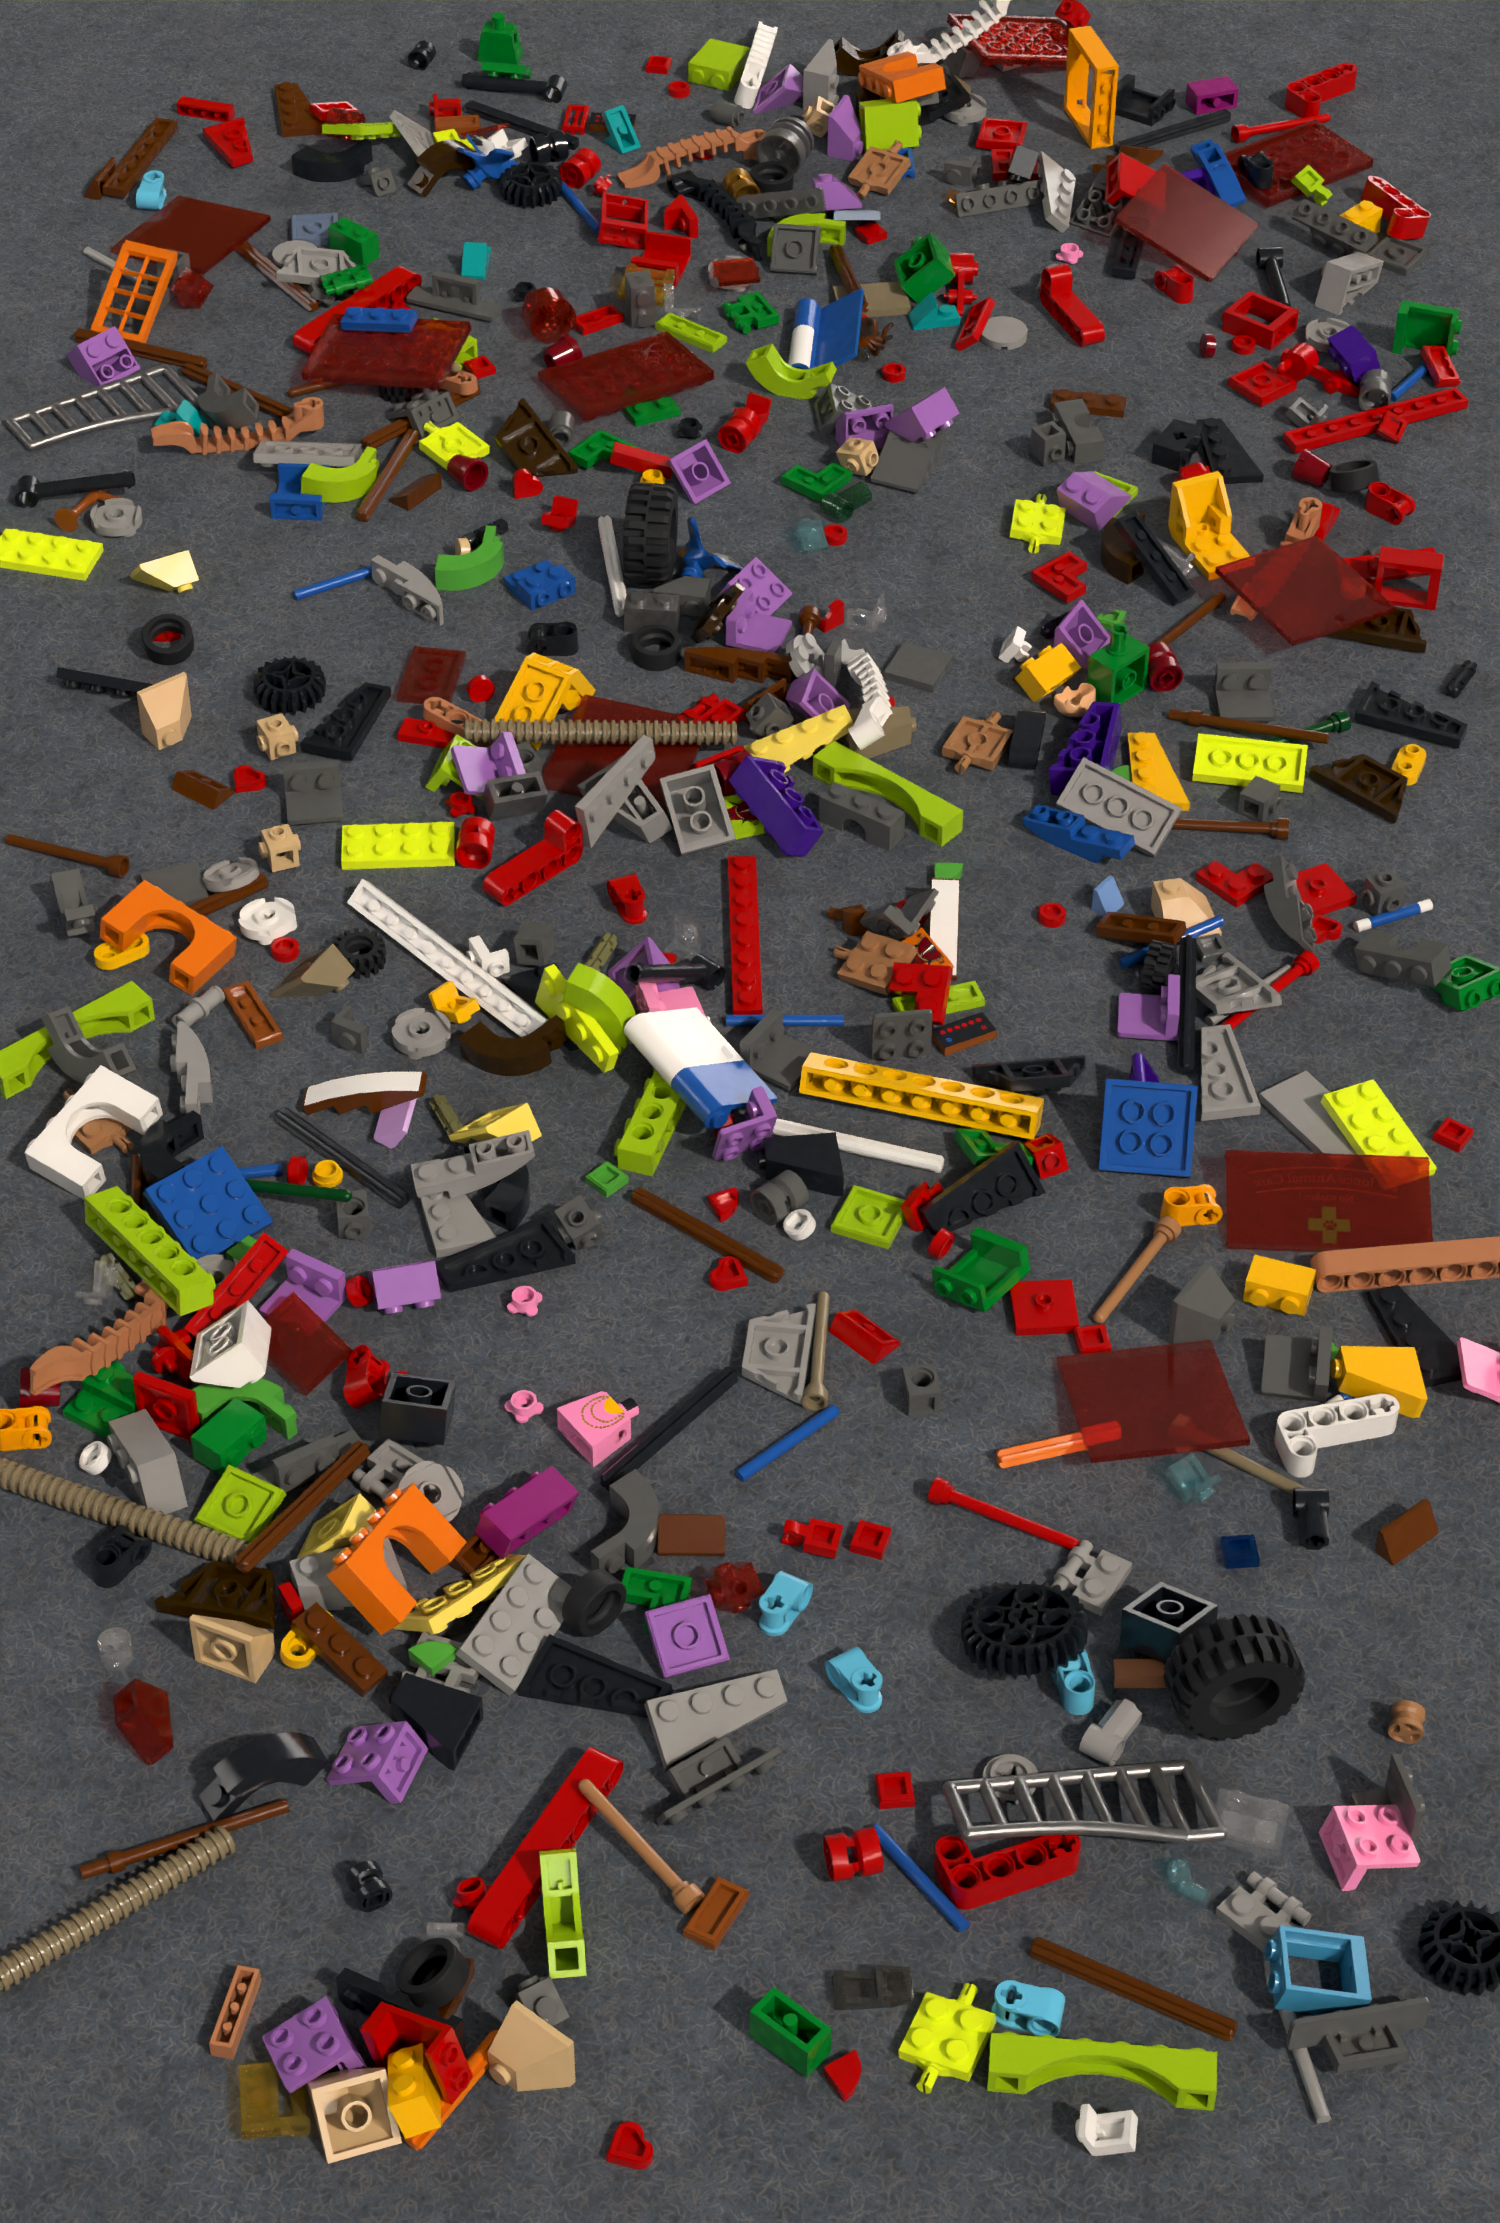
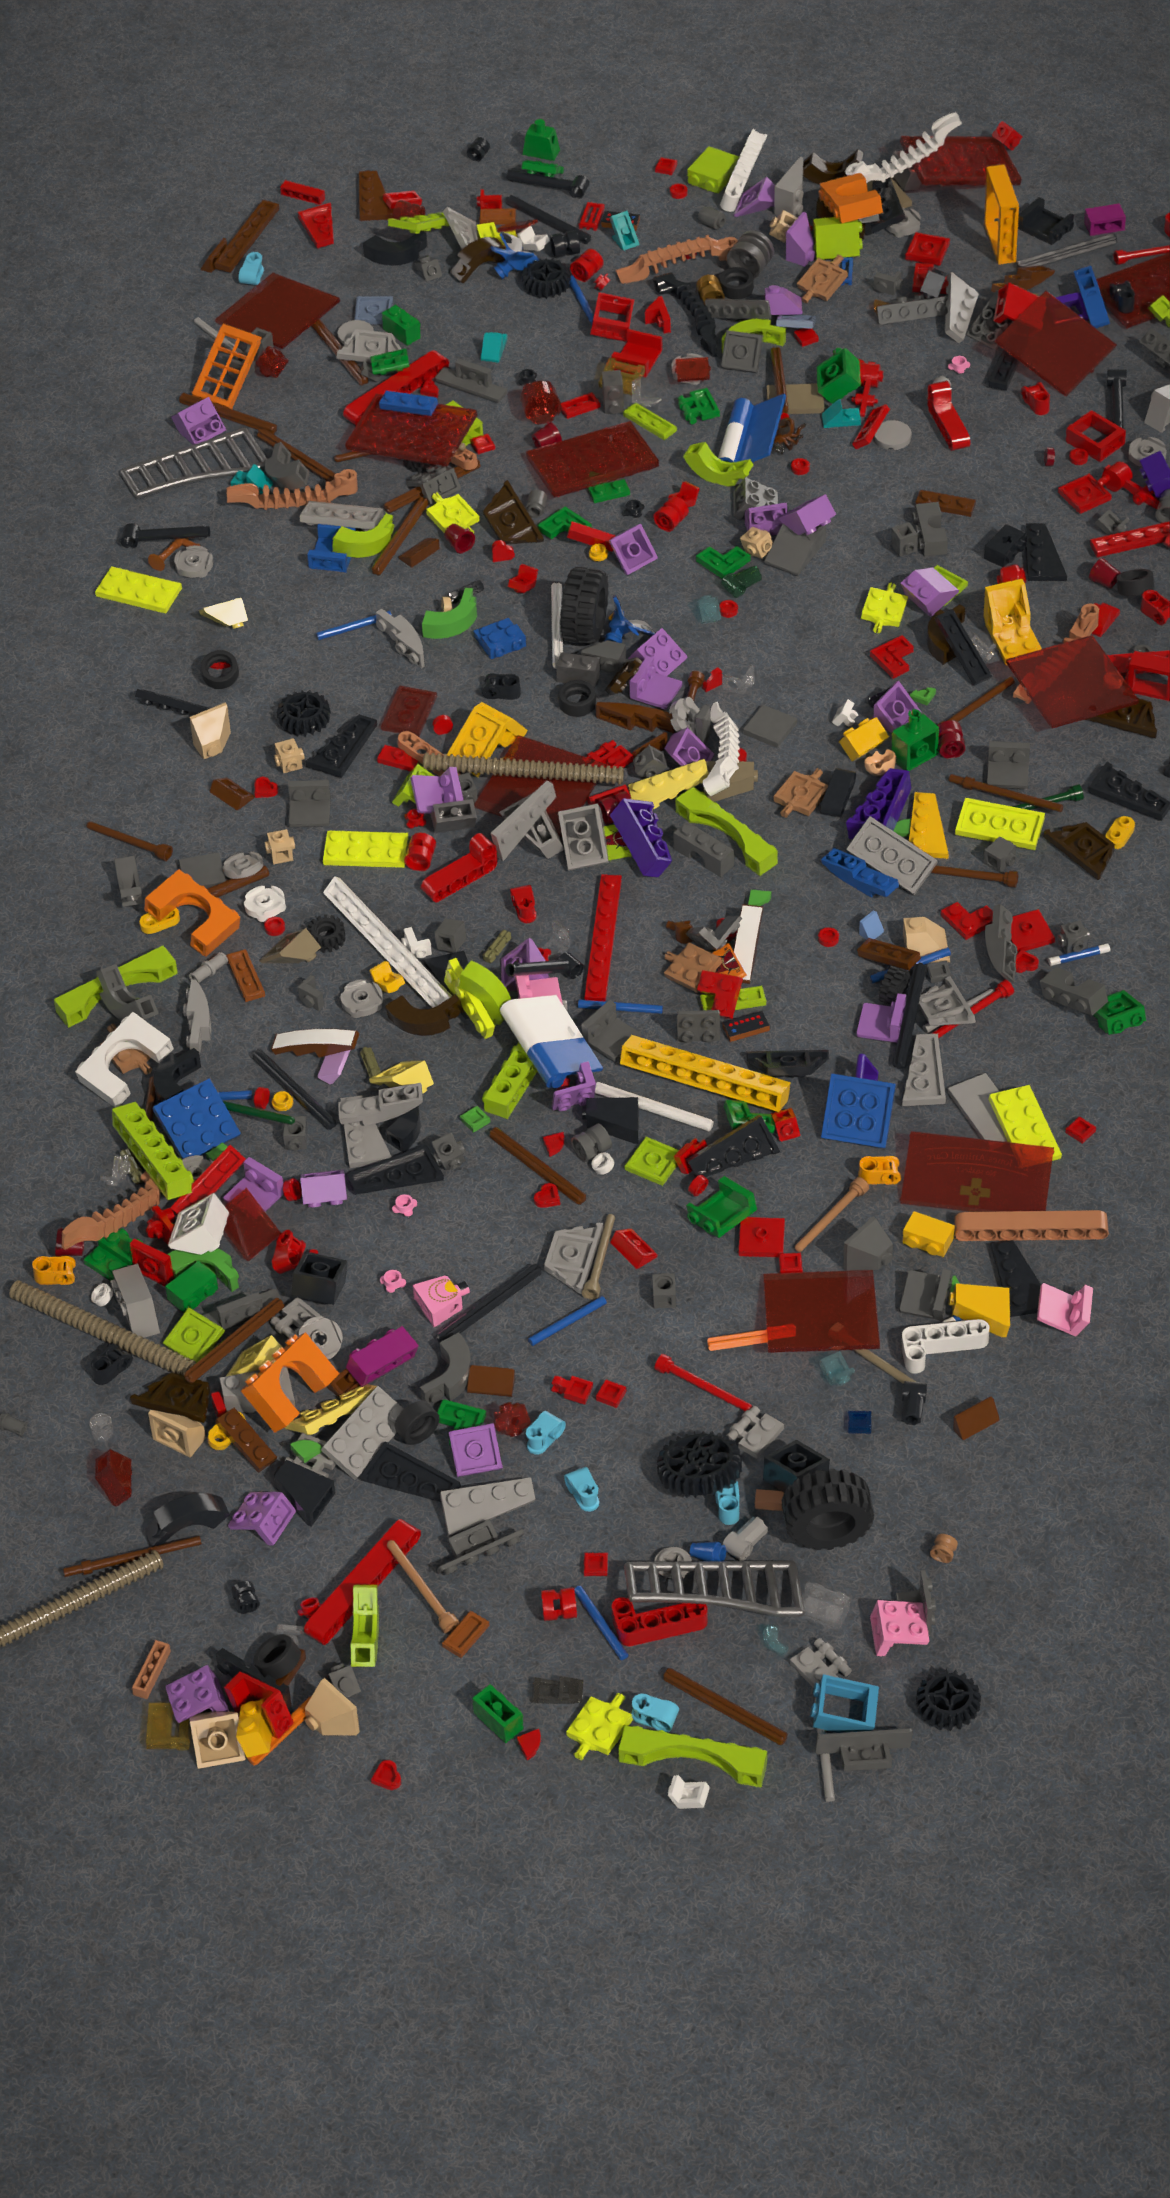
camera: 10 degrees right, 5 degrees up
(1060, 1756) = (708, 1551): none -> blue cone

